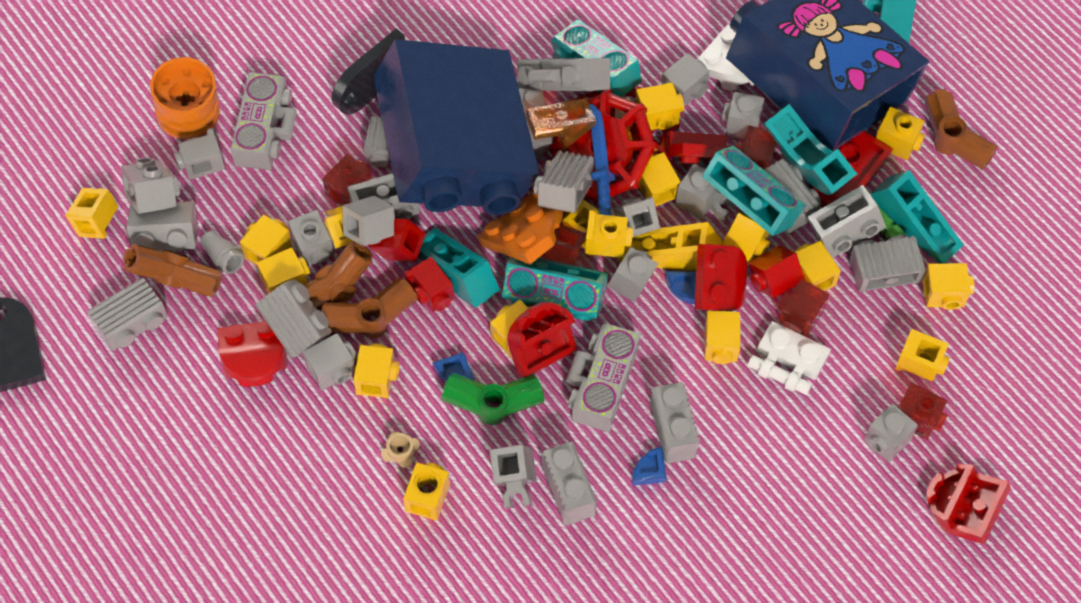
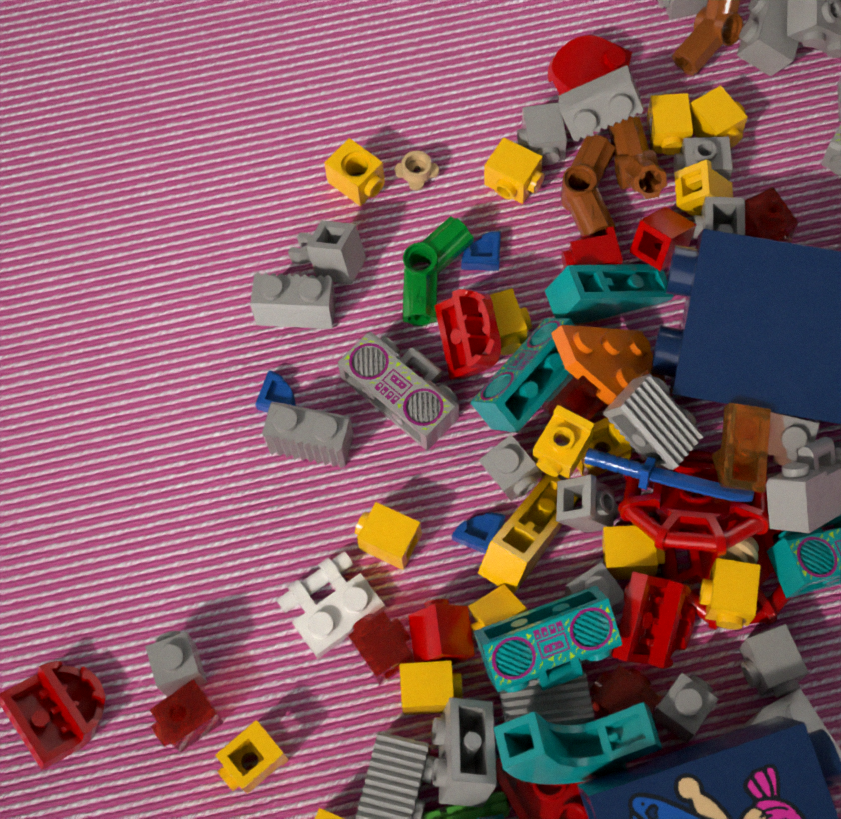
camera: 120 degrees right, 5 degrees up
(223, 253) = (728, 76): light grey cone -> none
(368, 220) = (683, 195): light grey brick -> none
(720, 278) = (454, 558): red slope -> none

